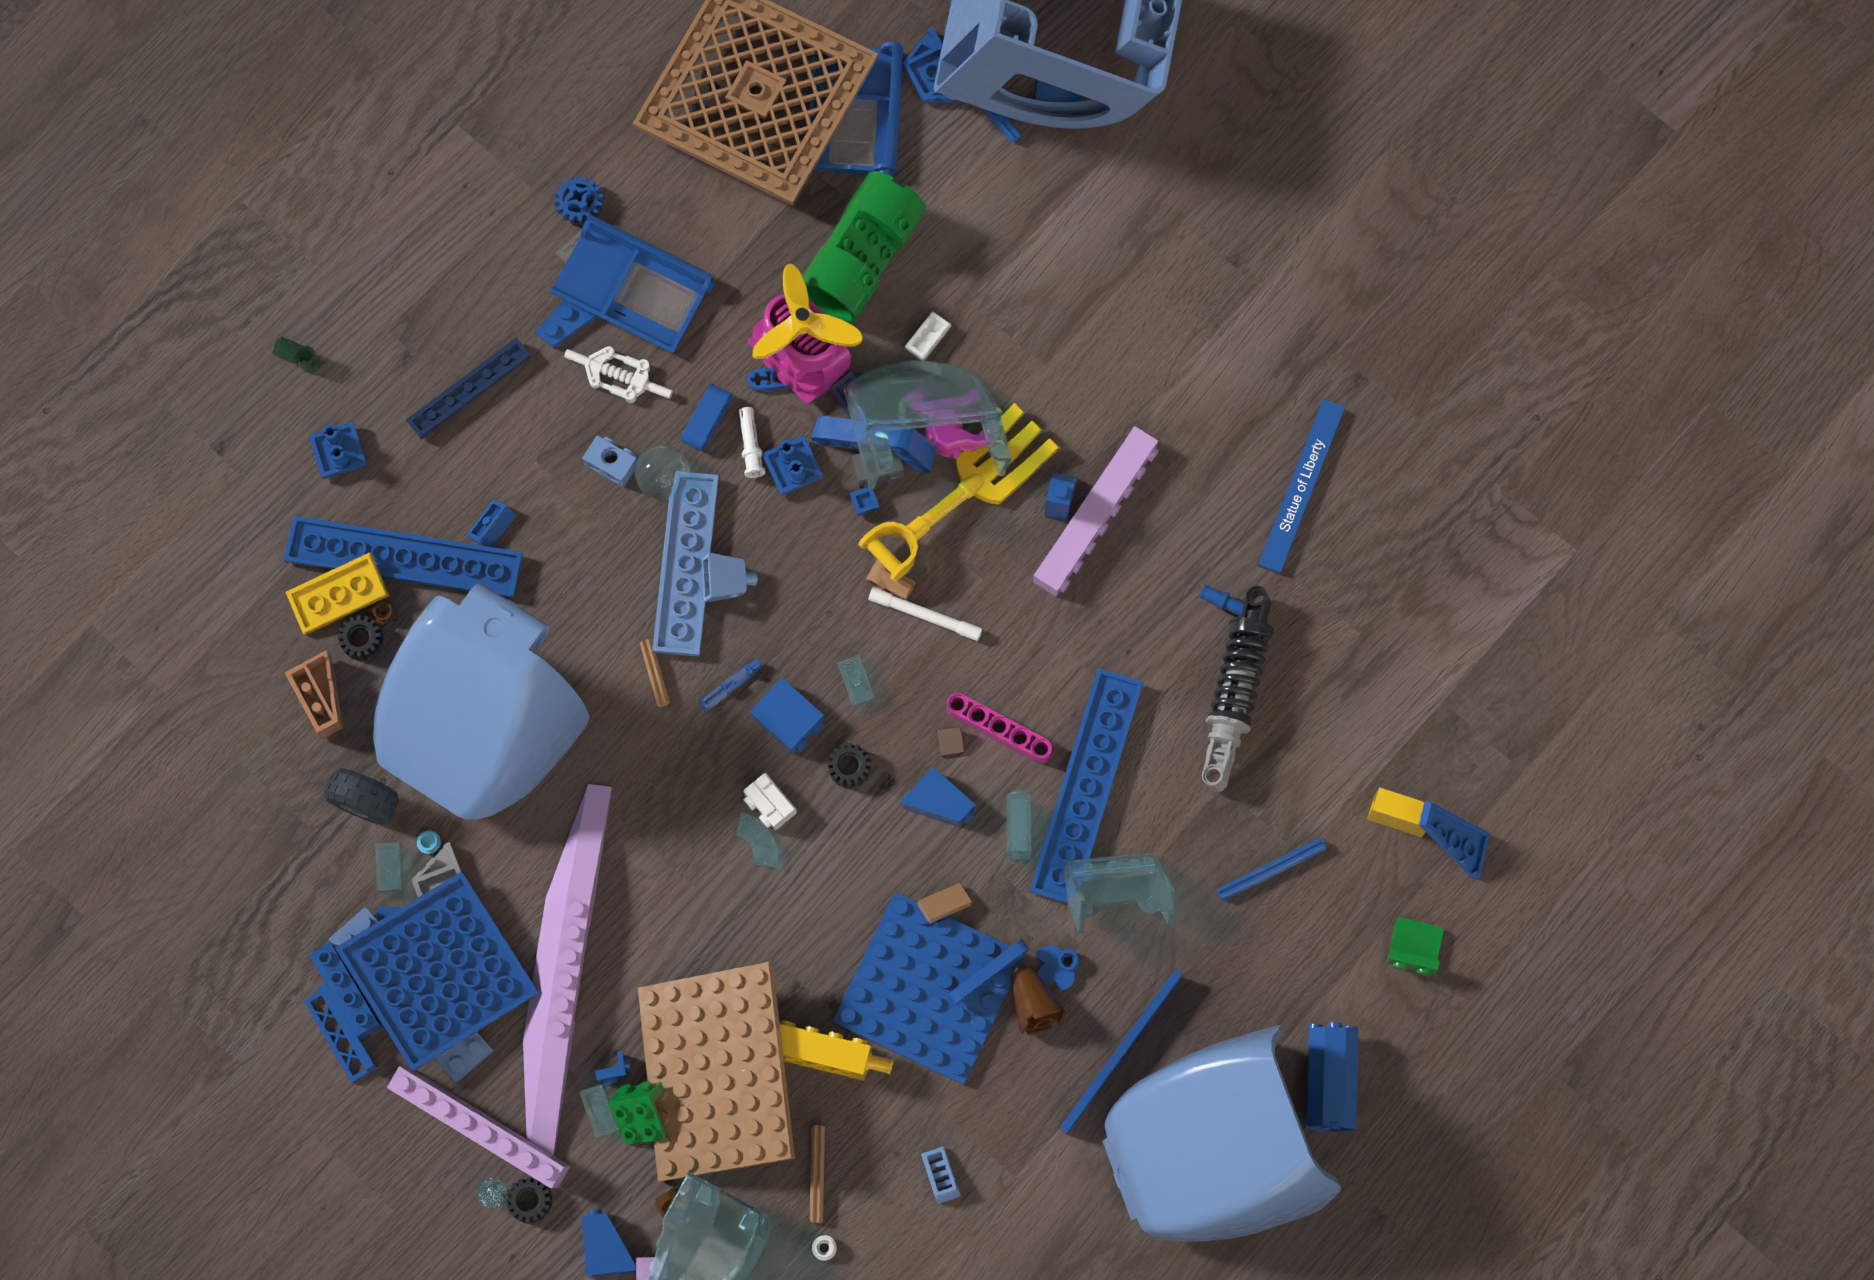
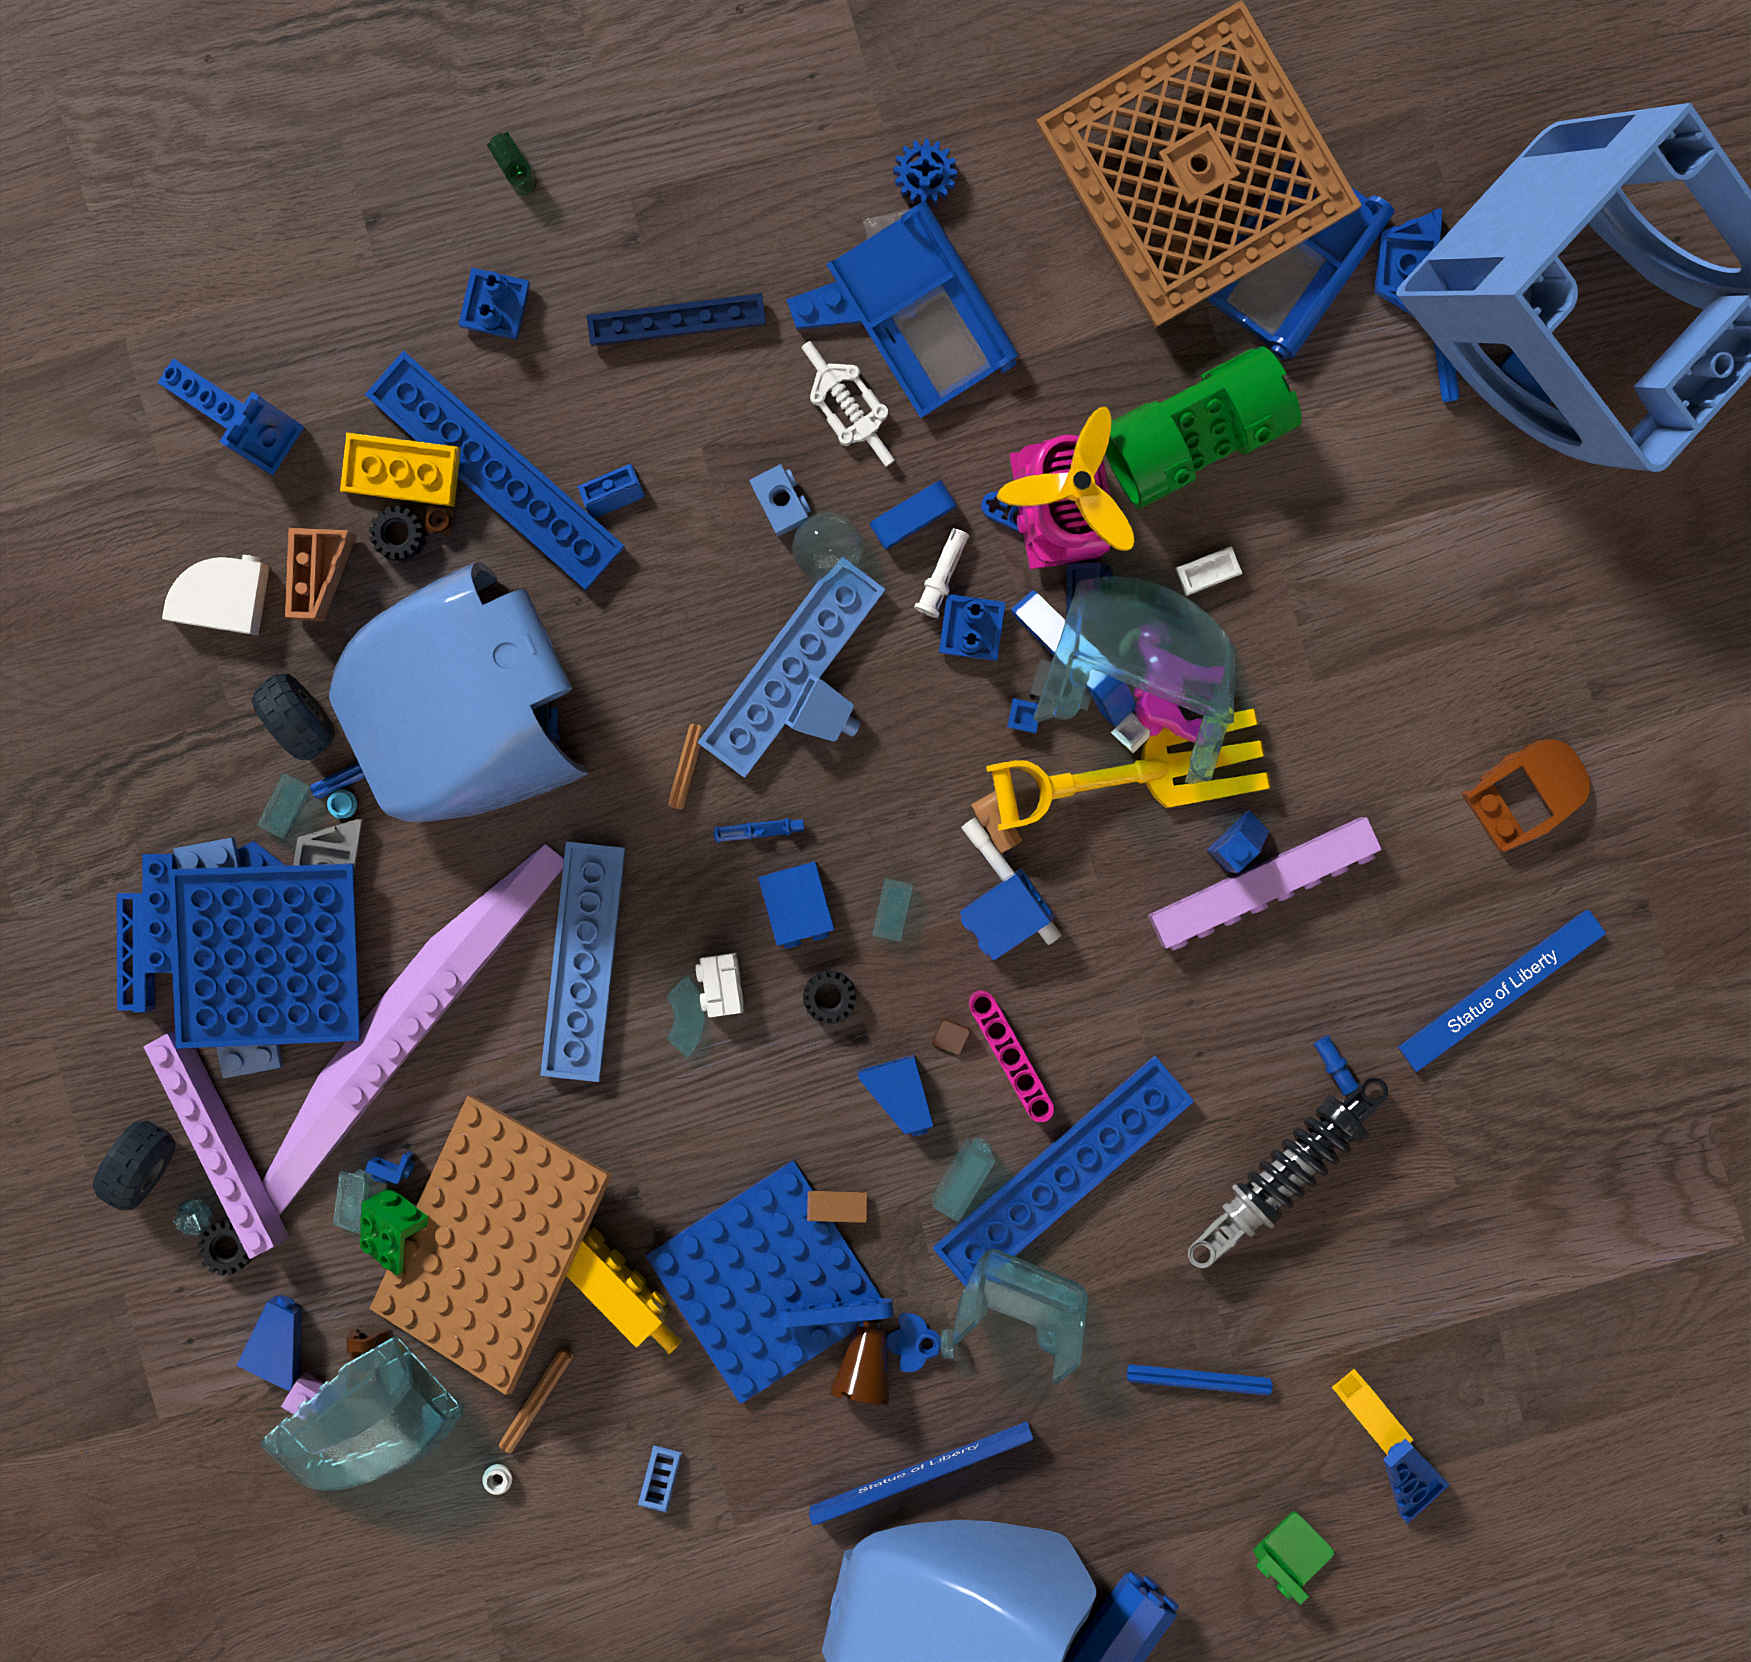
camera: 30 degrees right, 15 degrees up
(223, 620) = (253, 428): none -> blue bracket
(259, 752) = (220, 595): none -> white brick
(419, 824) = (337, 781): none -> blue axle
(429, 1174) = (133, 1165): none -> black wheel
(663, 846) = (583, 961): none -> medium blue plate
(935, 635) = (1006, 915): none -> blue brick
(944, 468) = (1131, 733): none -> white tile
(1082, 950) = (947, 1345): none -> clear light blue tile
(1244, 328) = (1556, 777): none -> dark orange slope

